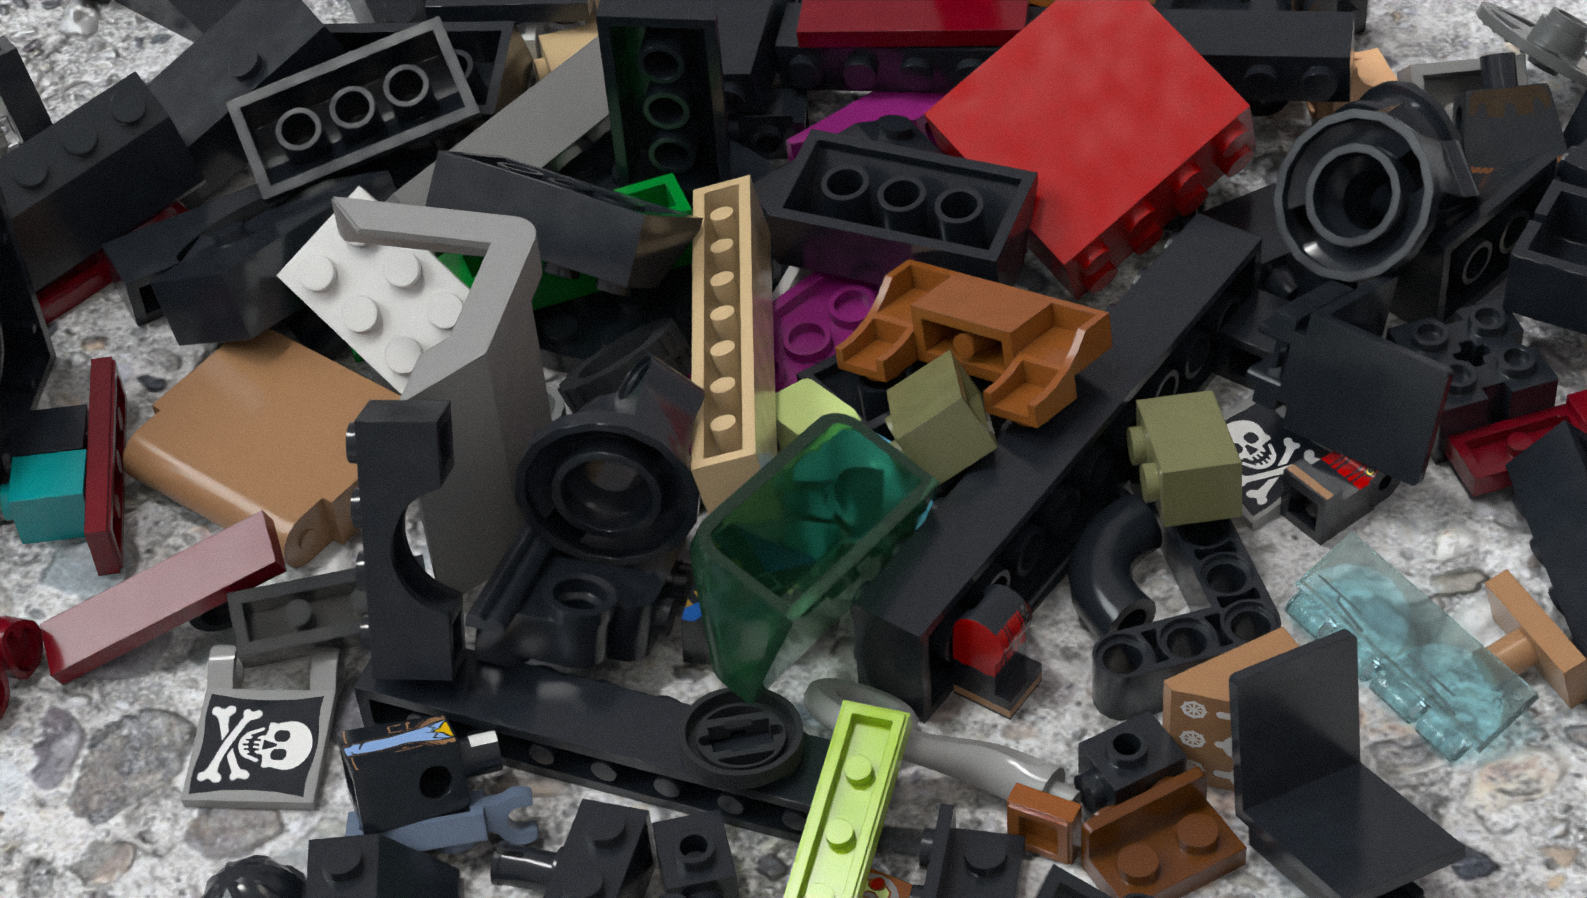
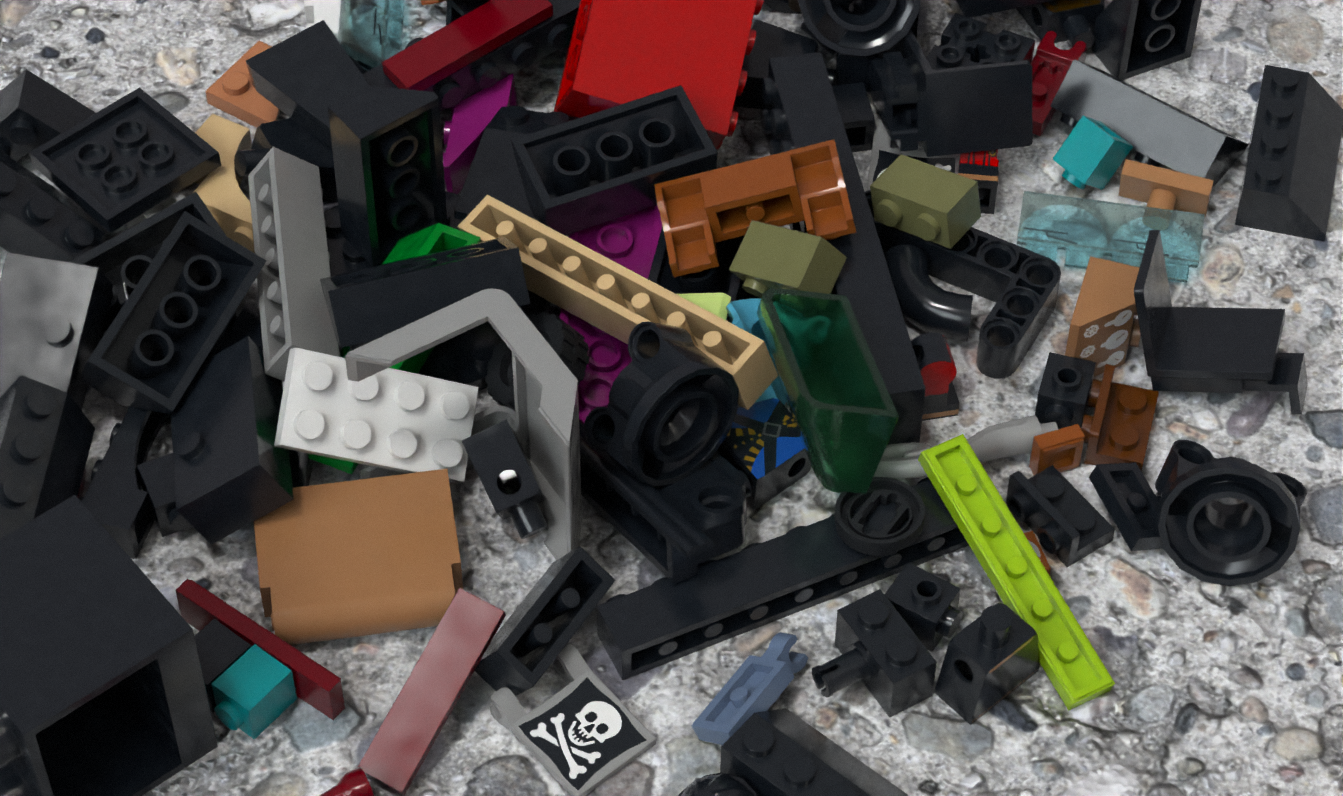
camera: 50 degrees left, 5 degrees up
(412, 618) = (599, 477): black arch -> none
(412, 770) = (708, 675): black torso -> none
(1485, 539) = (1091, 154): none -> teal brick

